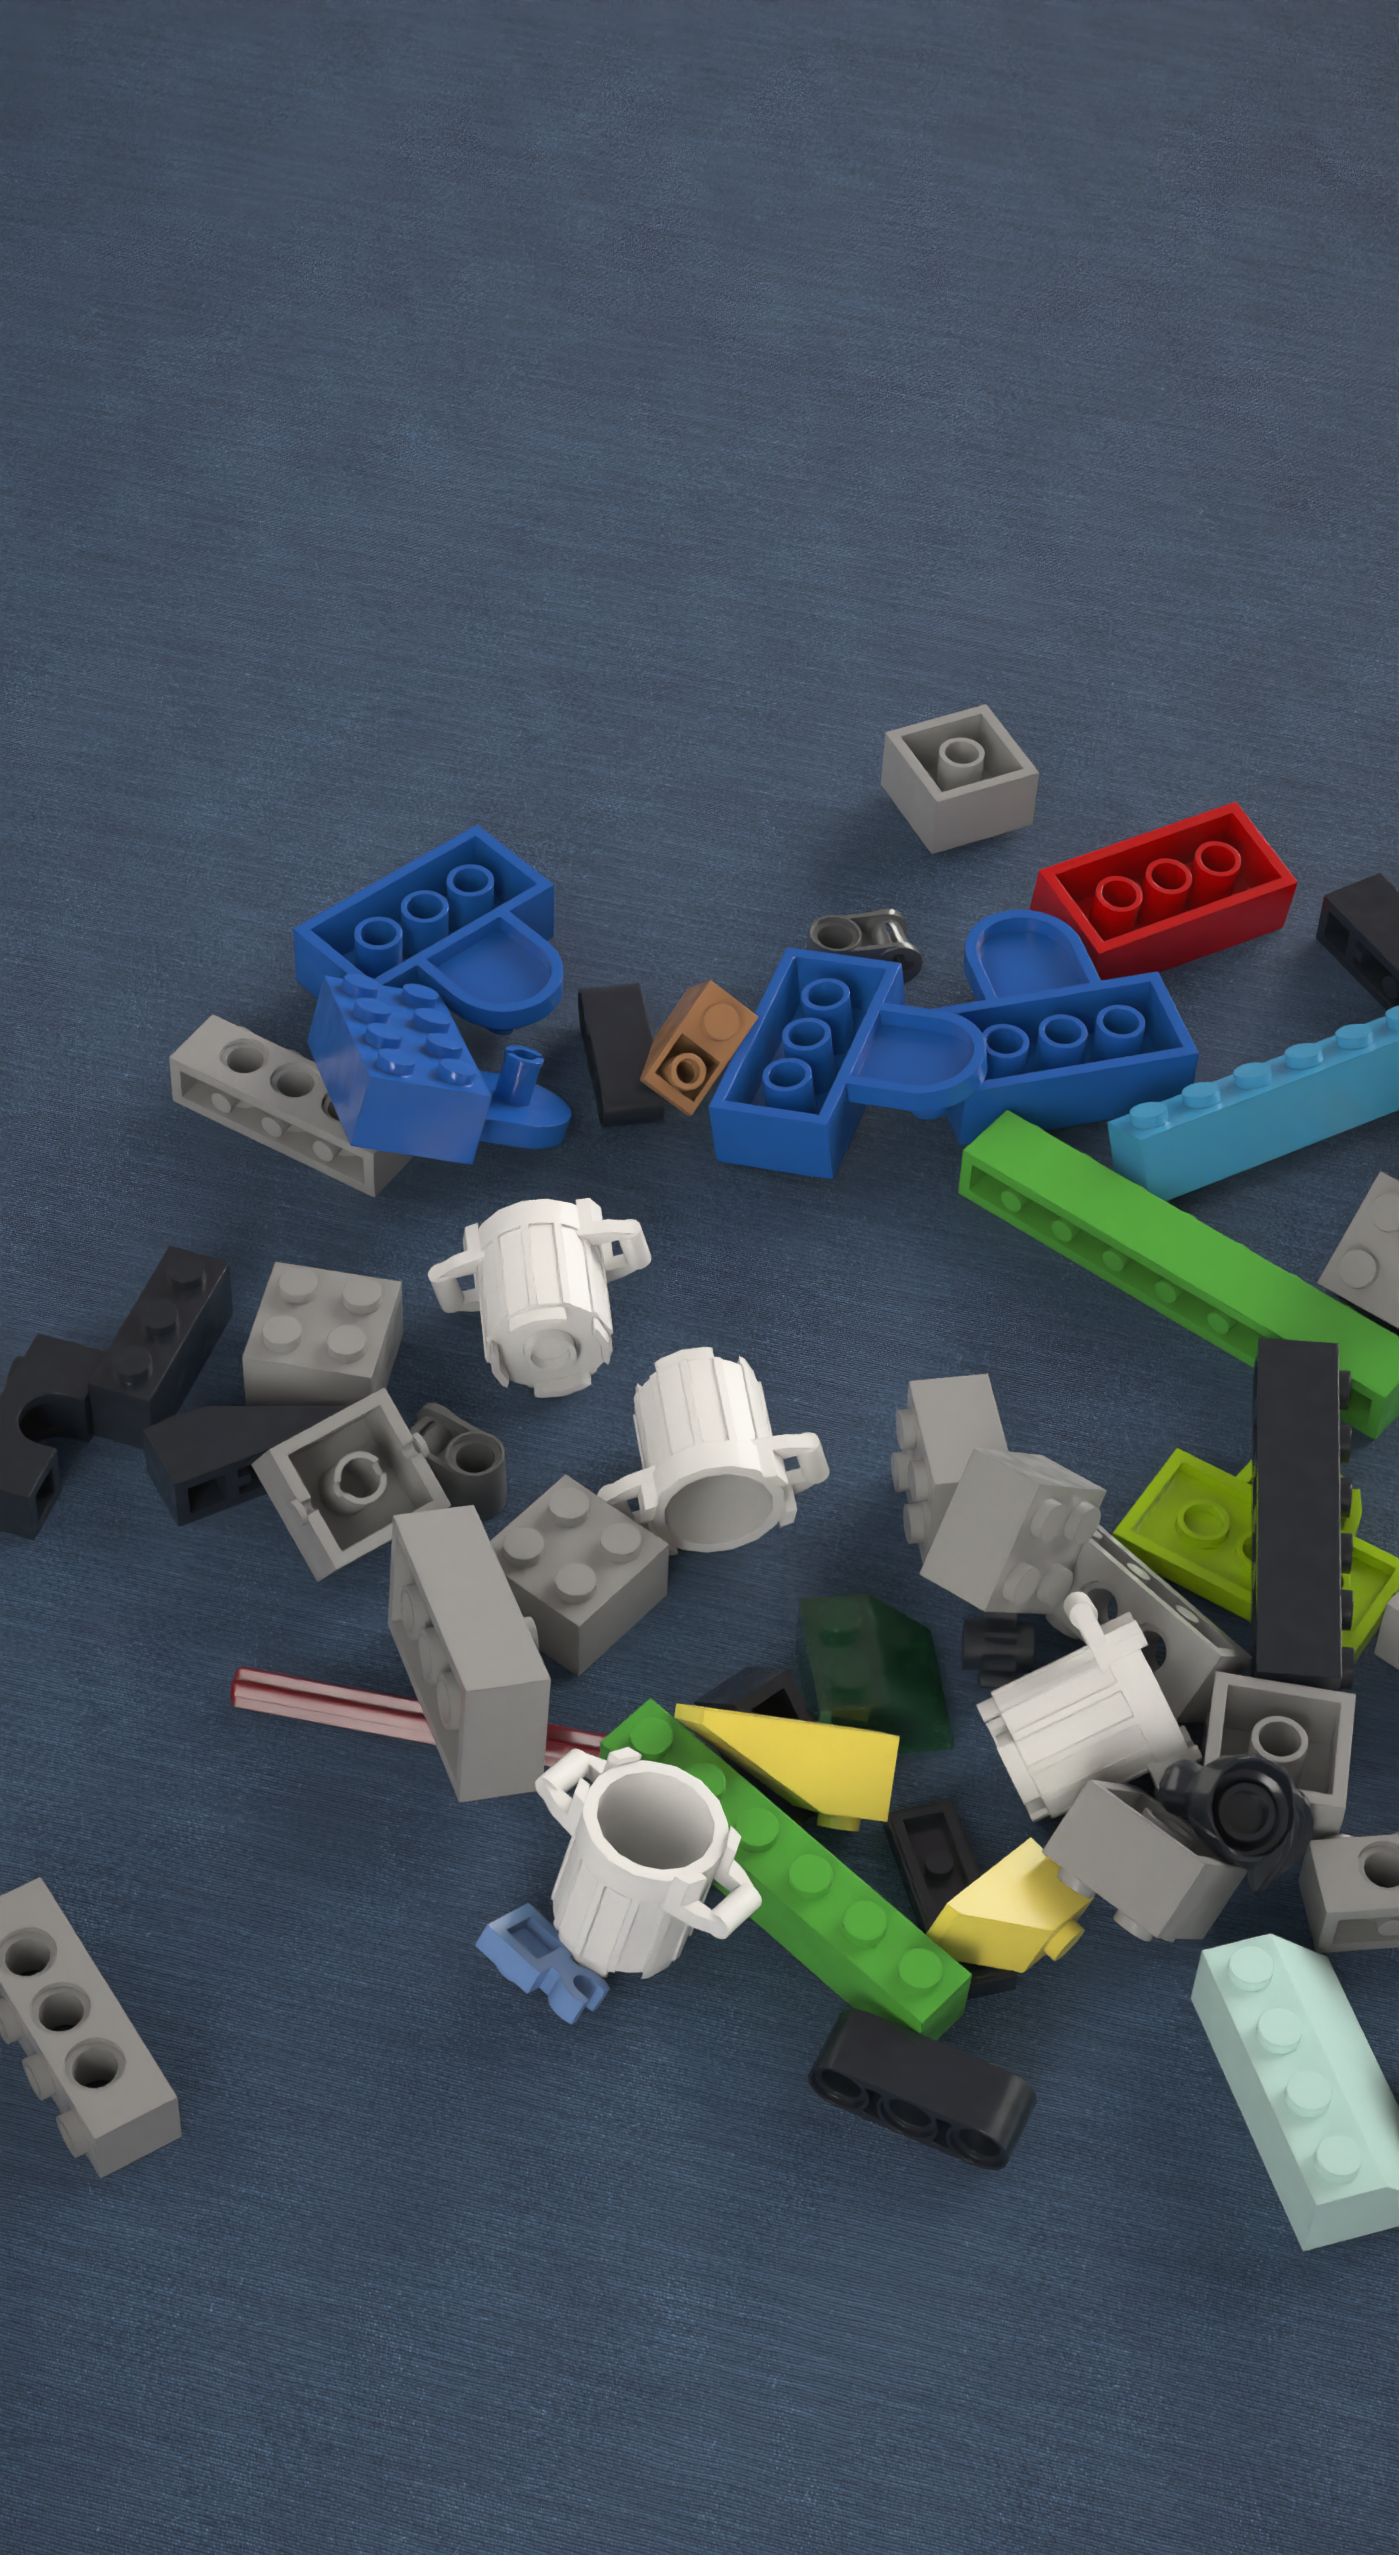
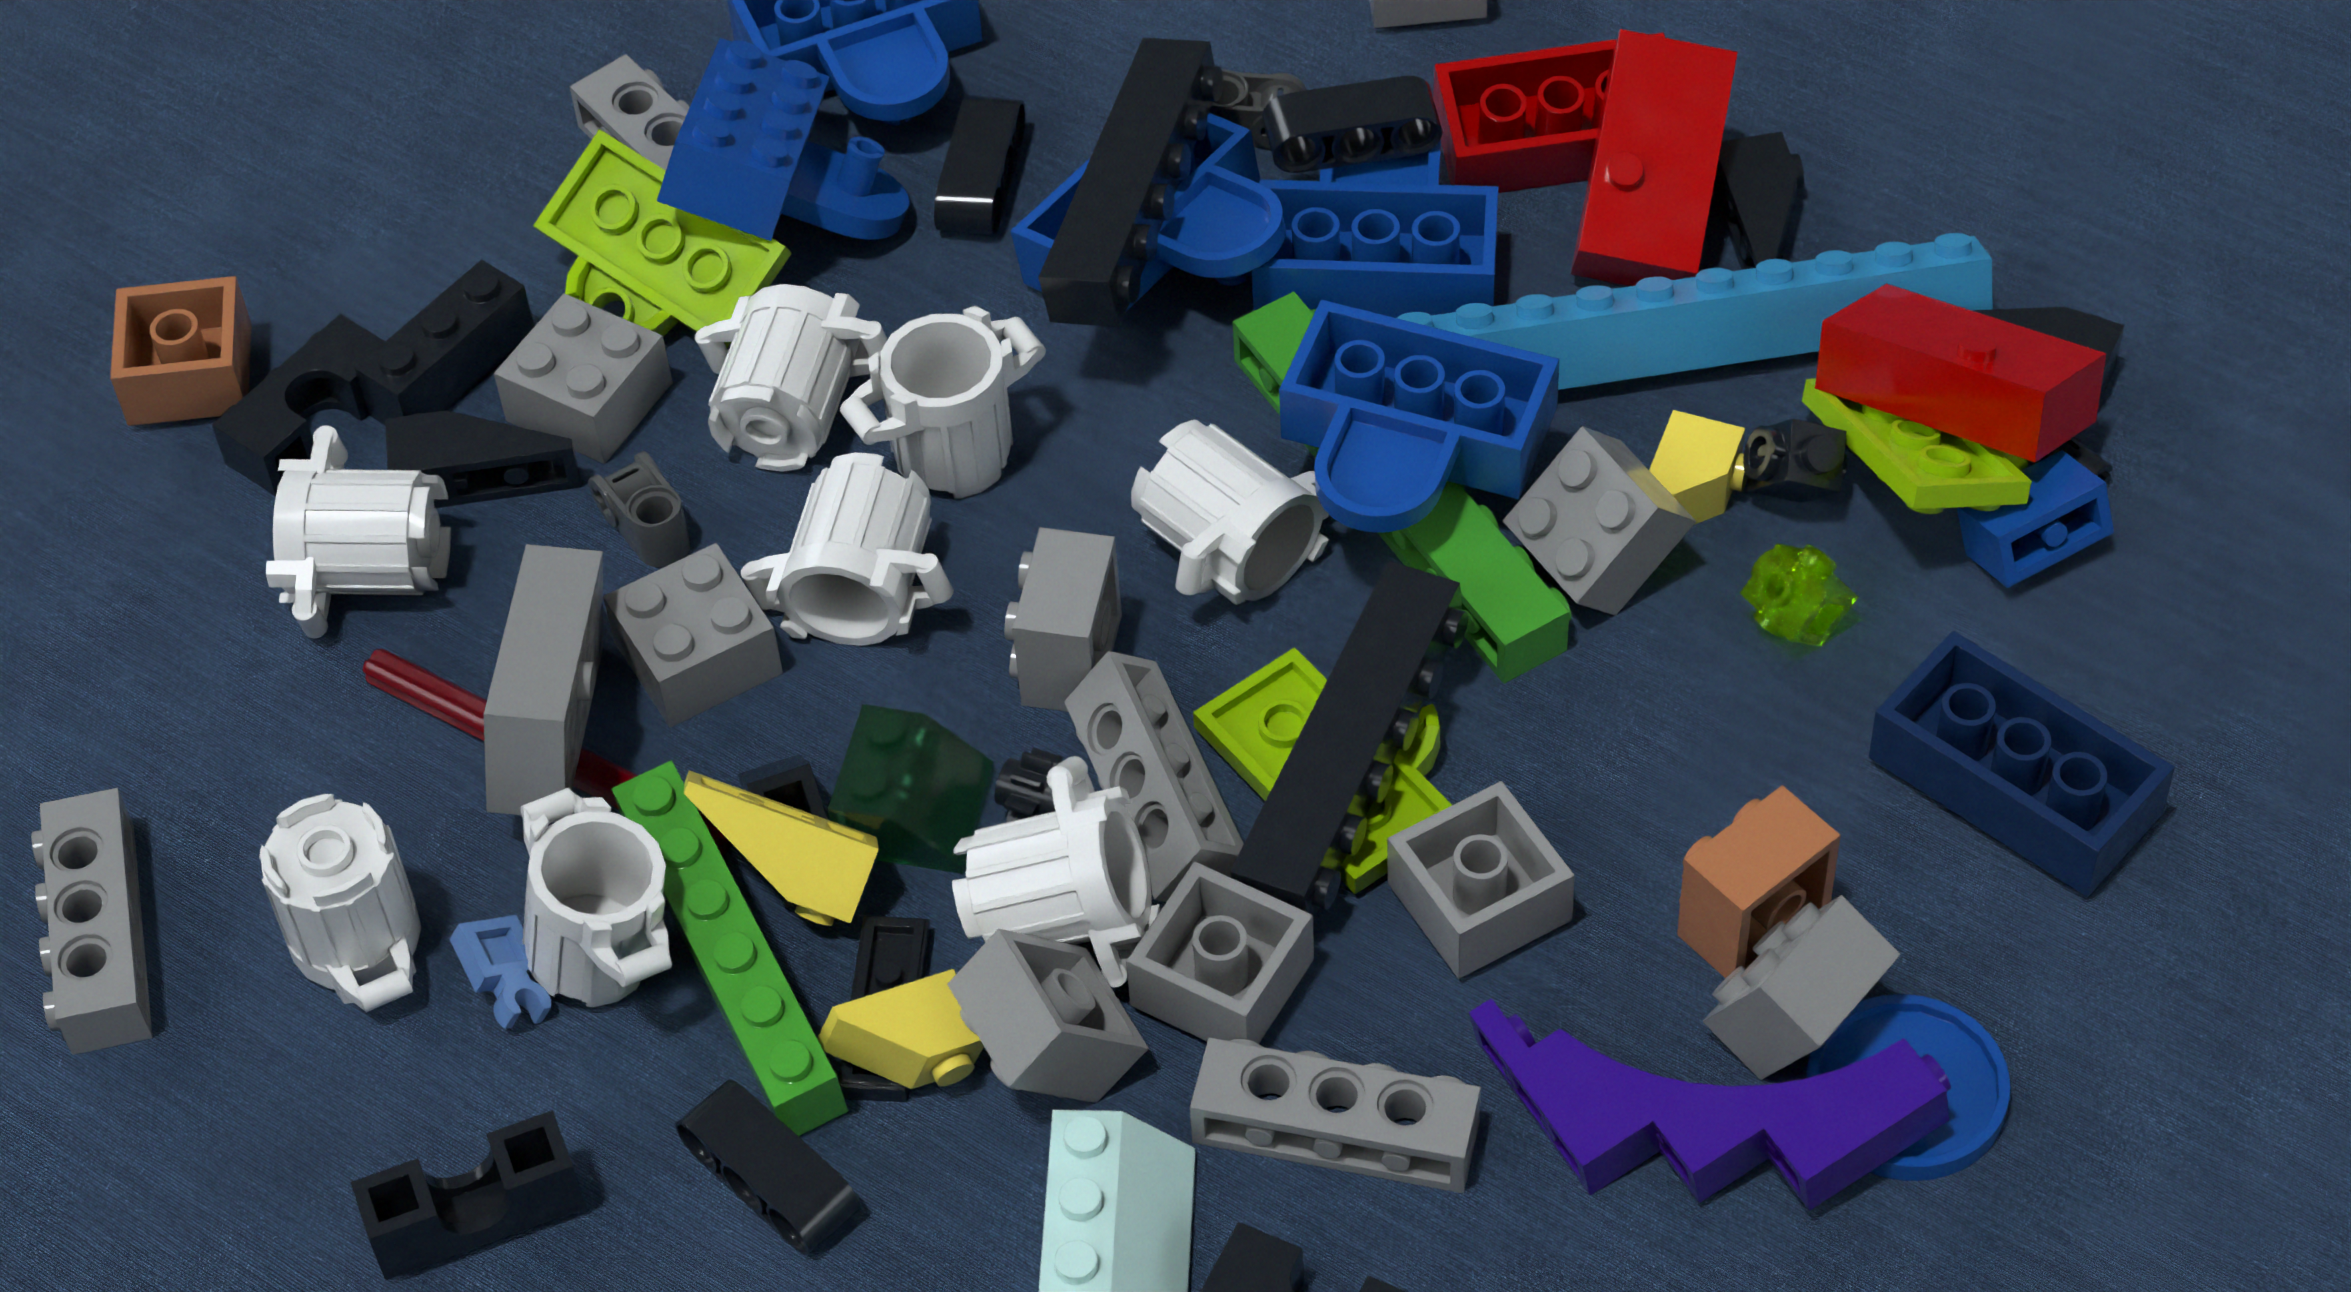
camera: 25 degrees right, 5 degrees up
(168, 1550) = (352, 532): none -> white container
(339, 1201) = (646, 252): none -> lime plate
(347, 1481) = (528, 496): light grey brick -> none
(355, 1931) = (342, 899): none -> white container
(597, 2239) = (430, 1218): none -> black arch
(696, 1045) = (1028, 173): medium nougat slope -> none
(735, 1274) = (946, 397): none -> white container
(824, 1036) = (1130, 183): none -> black brick
(1000, 938) = (1352, 124): none -> black beam
(1013, 1532) = (1060, 687): light grey brick -> none
(1055, 1330) = (1228, 514): none -> white container
(1205, 1195) = (1408, 411): none -> blue brick
(1242, 1812) = (1145, 998): black hair -> none
(1290, 920) = (1654, 160): none -> red brick

